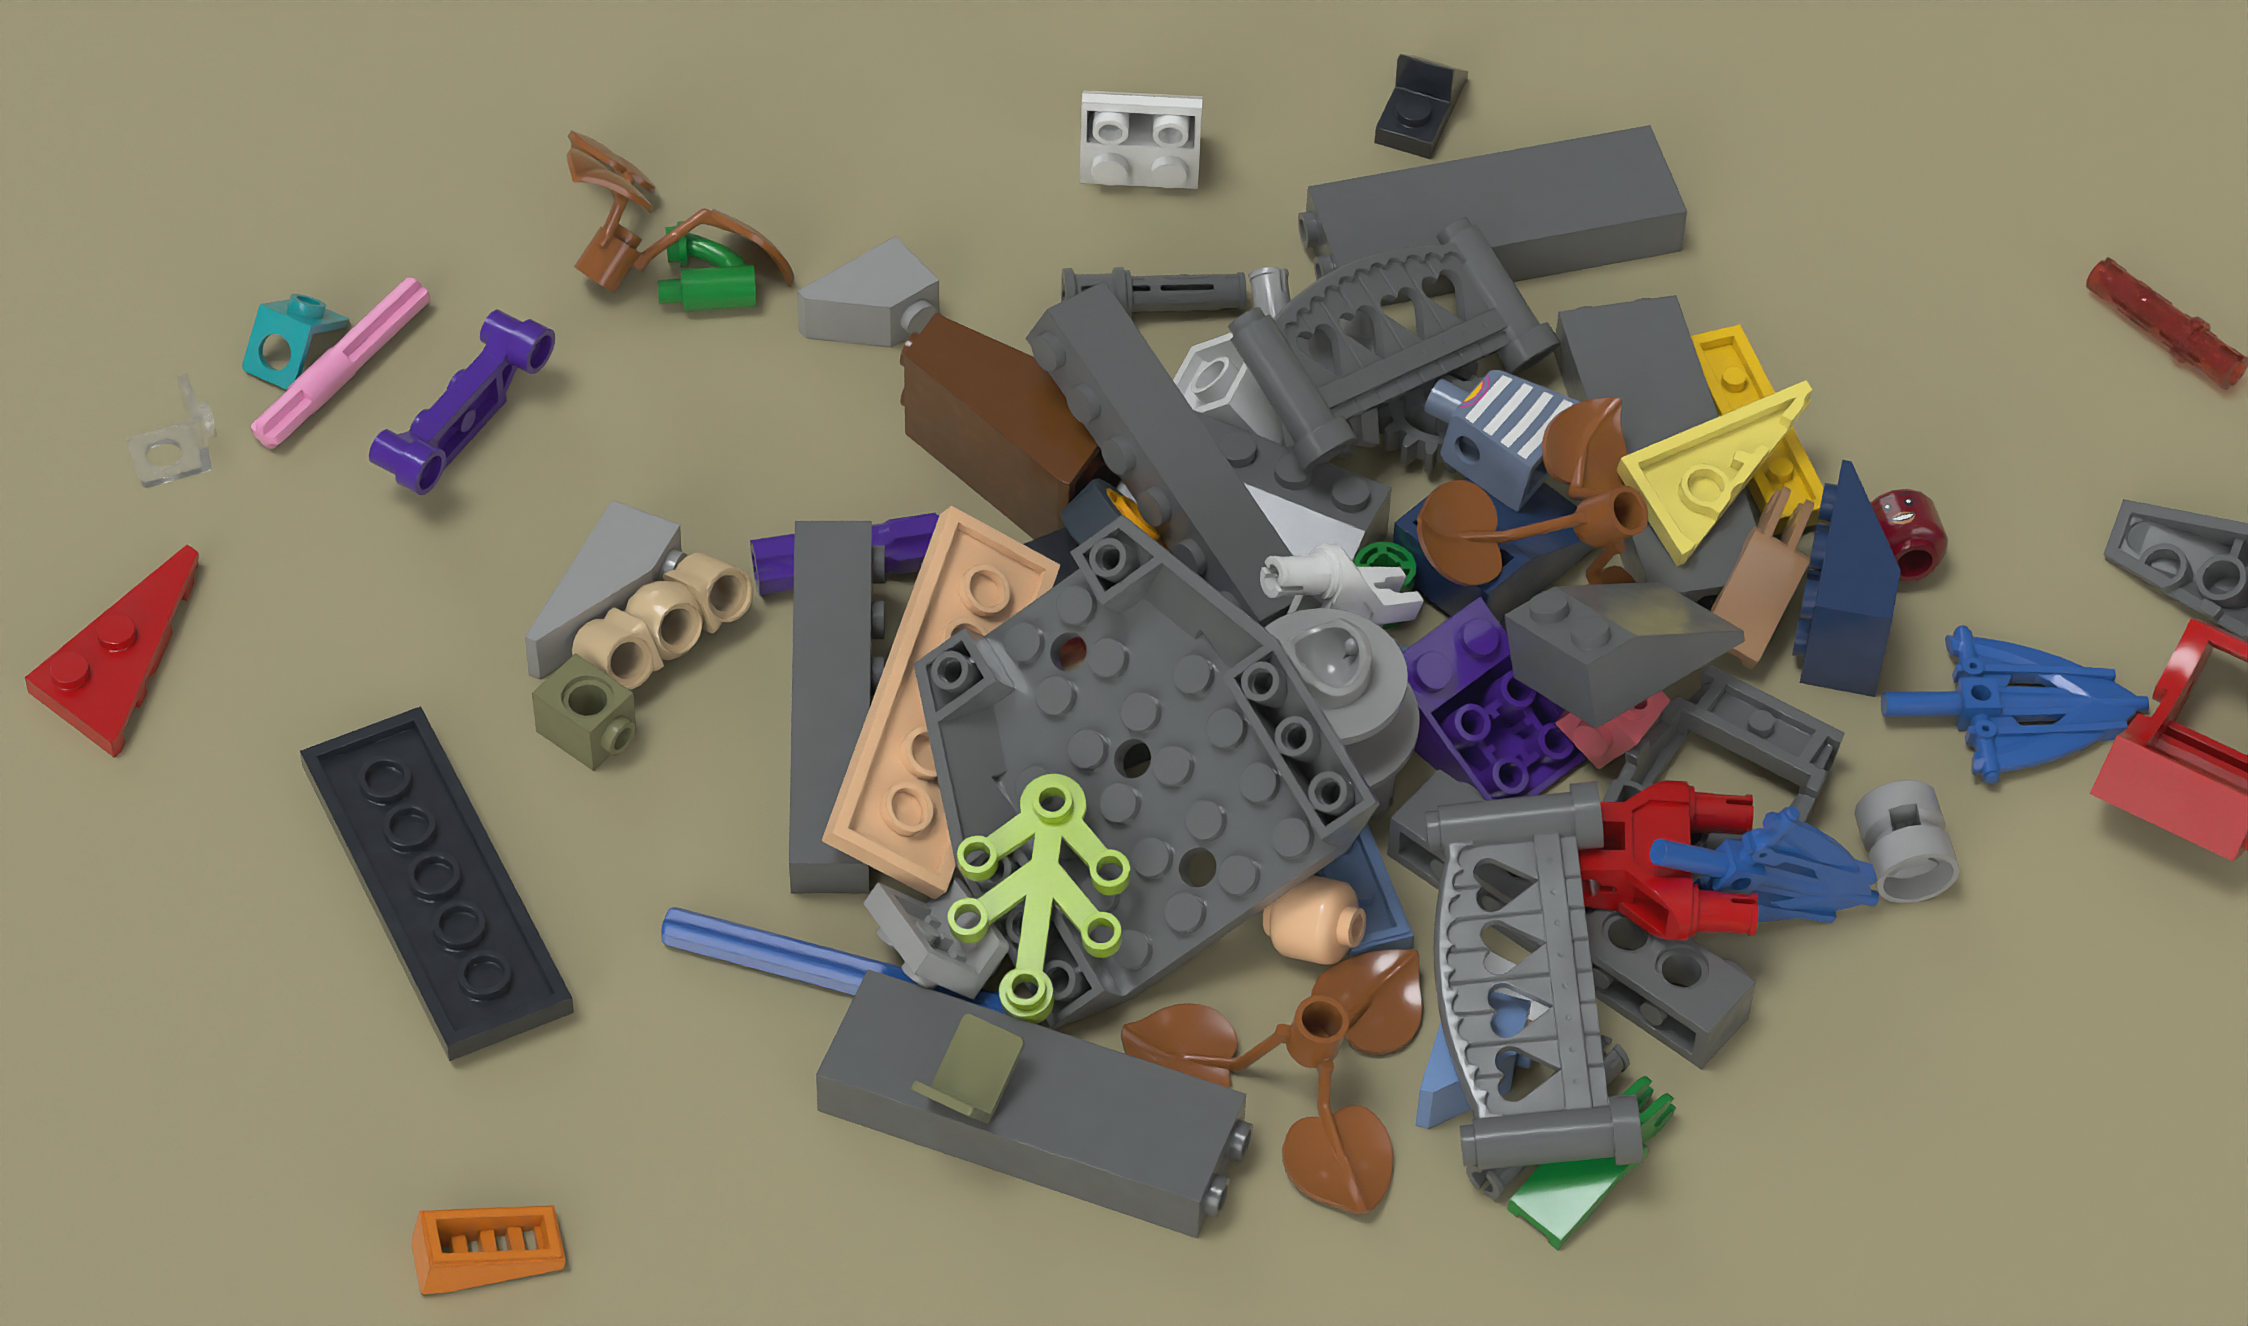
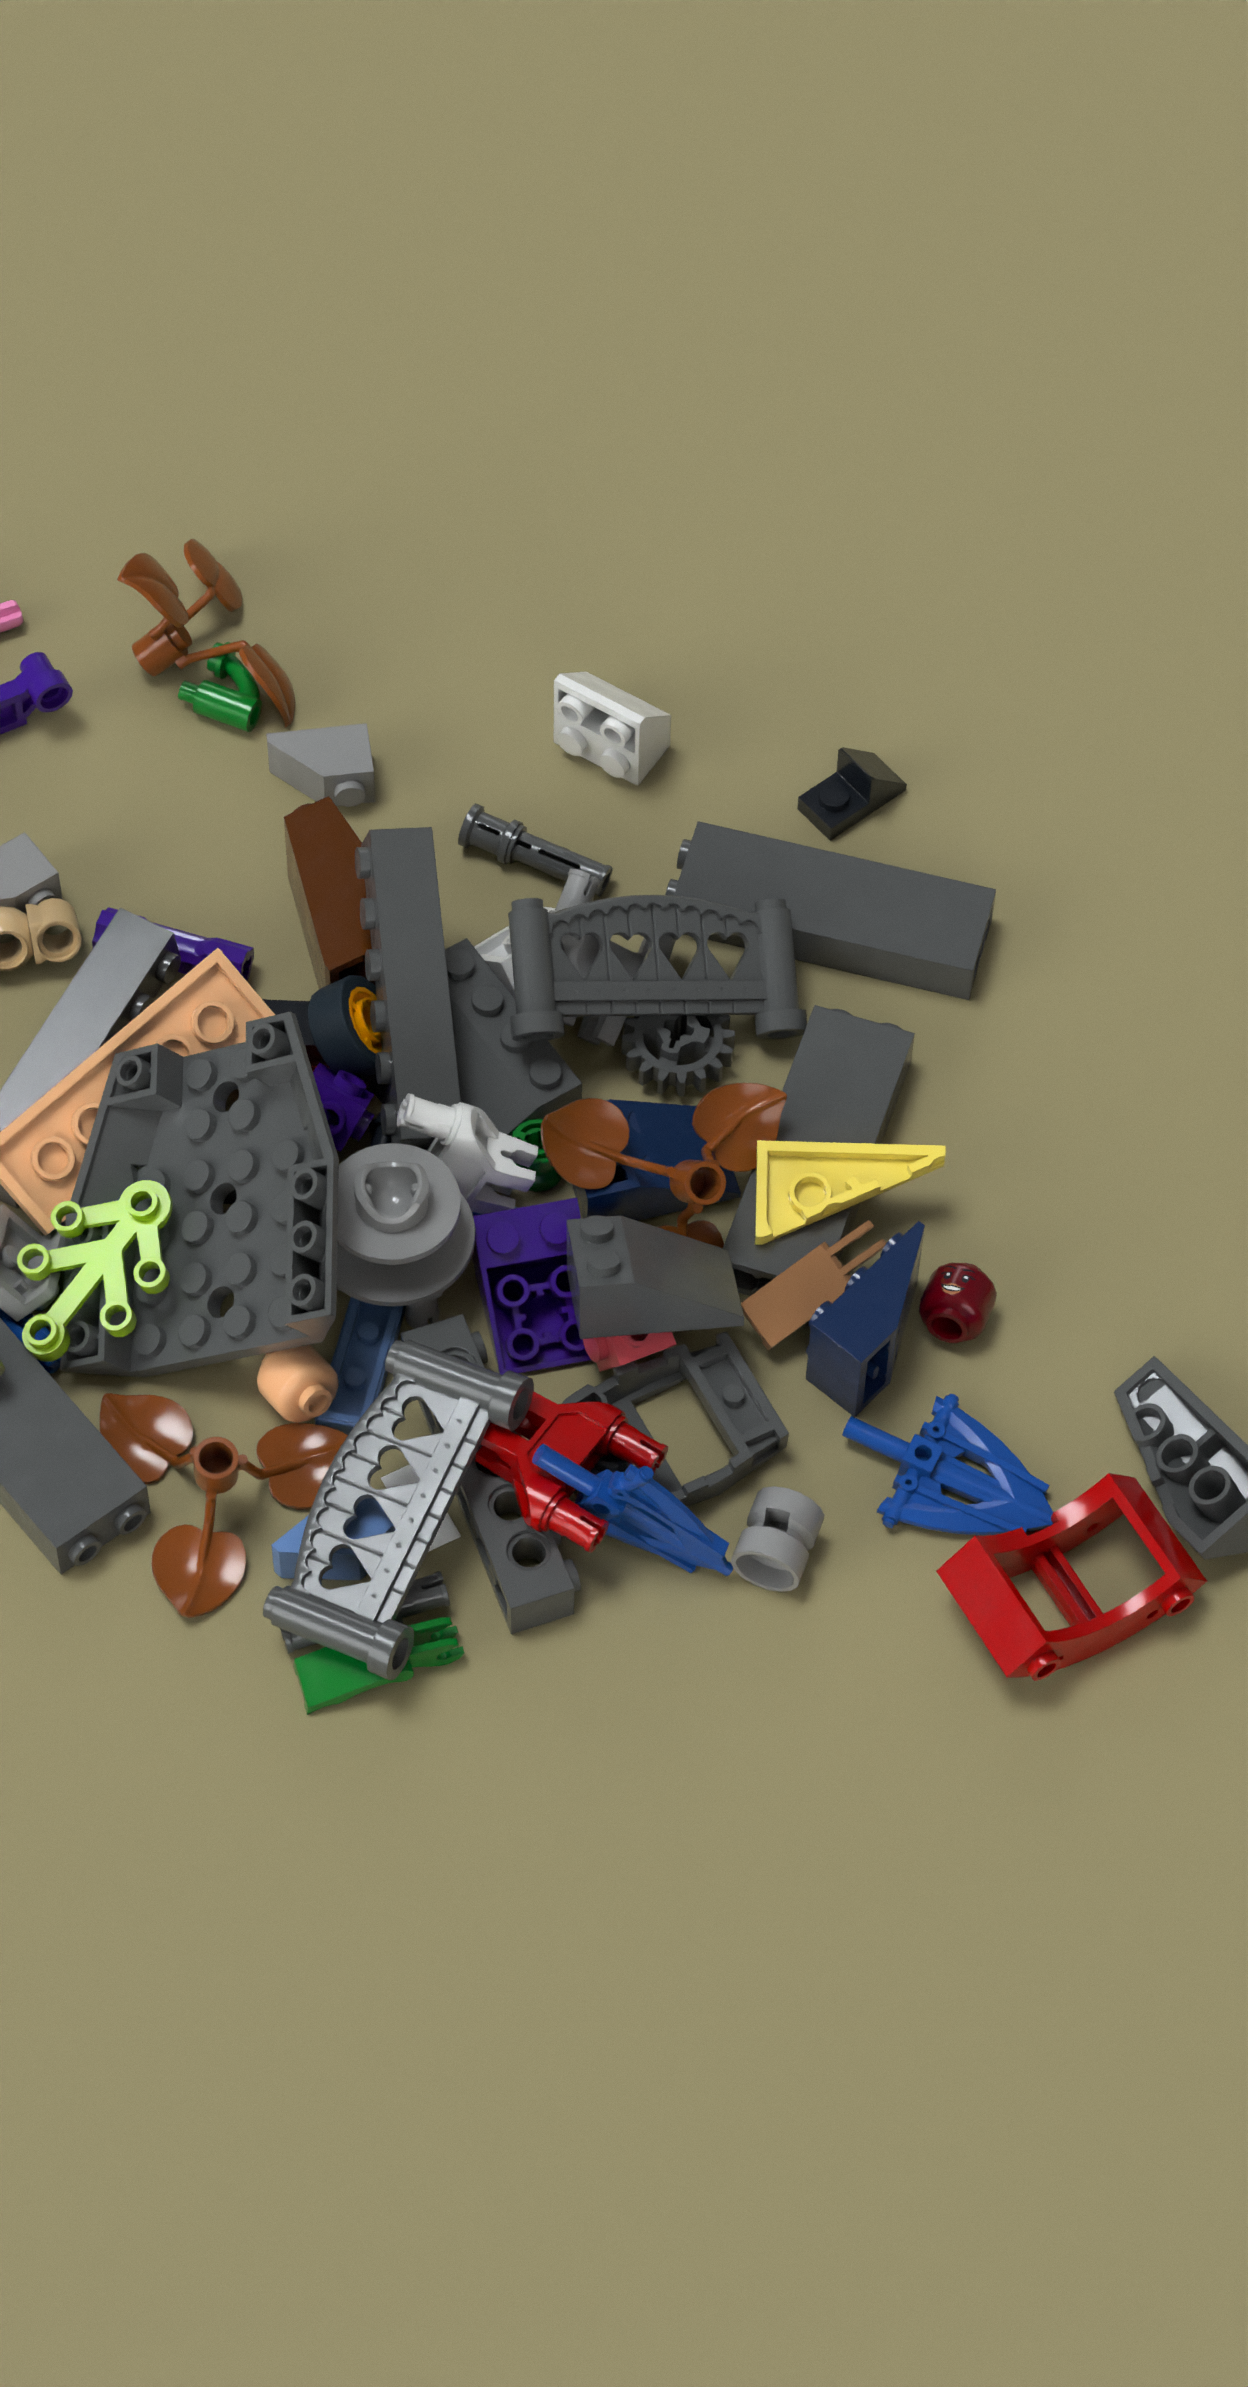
camera: 30 degrees right, 5 degrees up
(1497, 432) = (683, 1070): sand blue torso -> none
(1738, 380) = (919, 1120): yellow plate -> none

